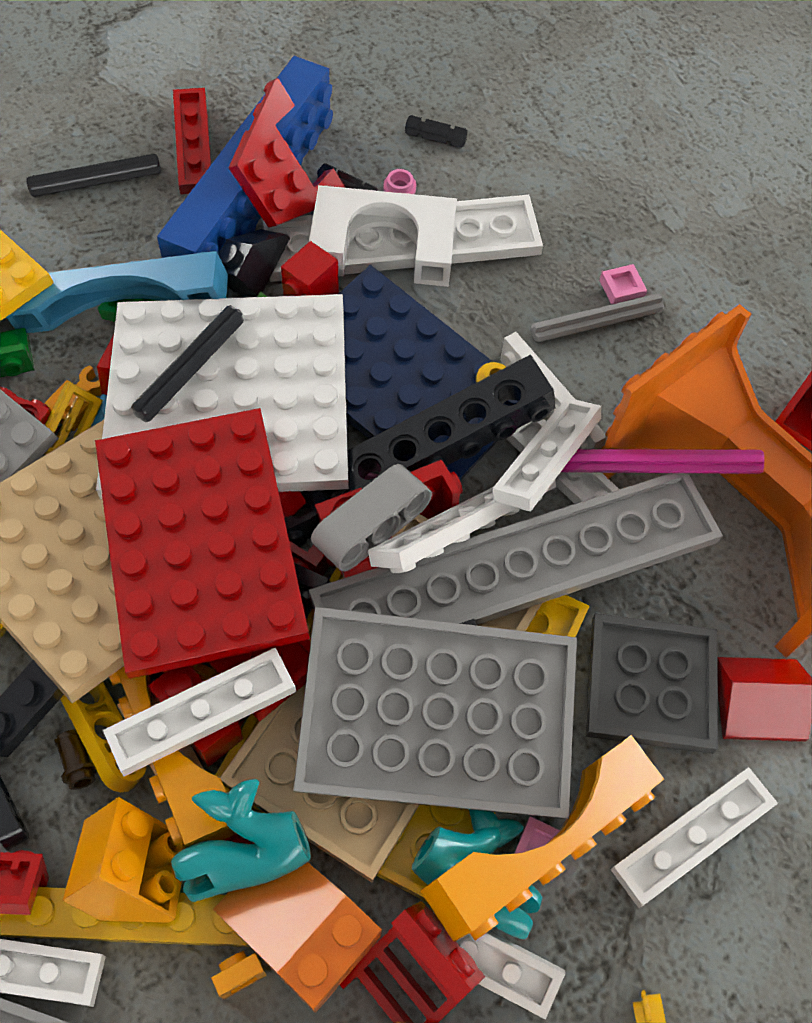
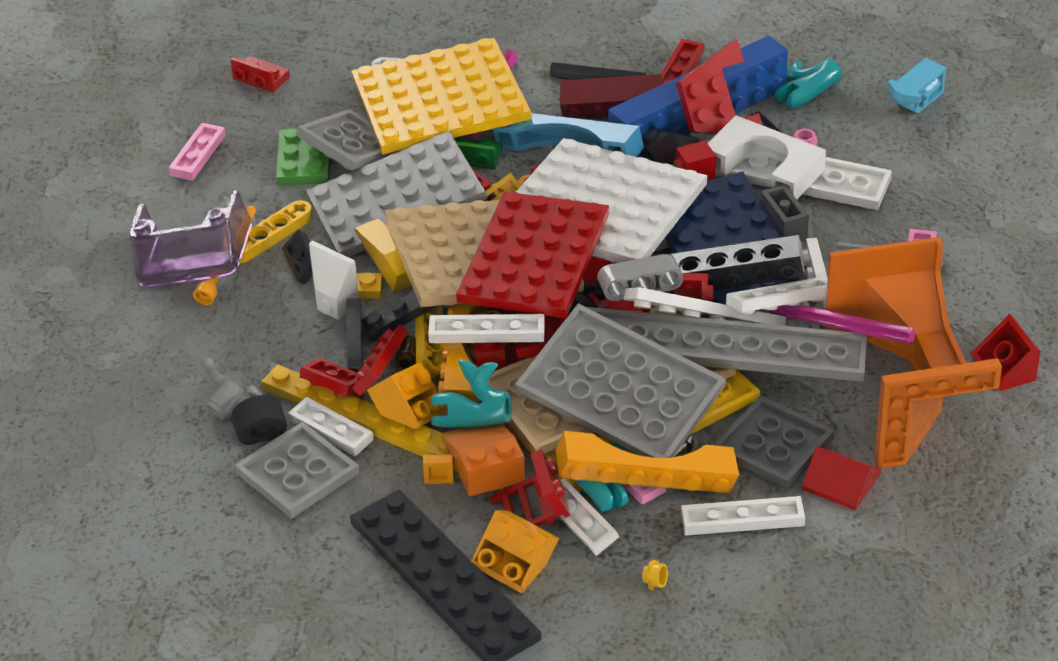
camera: 35 degrees right, 20 degrees down
(49, 825) = (379, 358): none -> red plate
(130, 207) = (595, 96): none -> dark red brick
(187, 364) = (583, 174): black axle -> none
(359, 100) = (807, 82): none -> teal piece
(436, 131) = (856, 117): black axle -> none
(455, 305) = (786, 211): none -> dark grey brick
(487, 64) = (919, 85): none -> medium azure piece

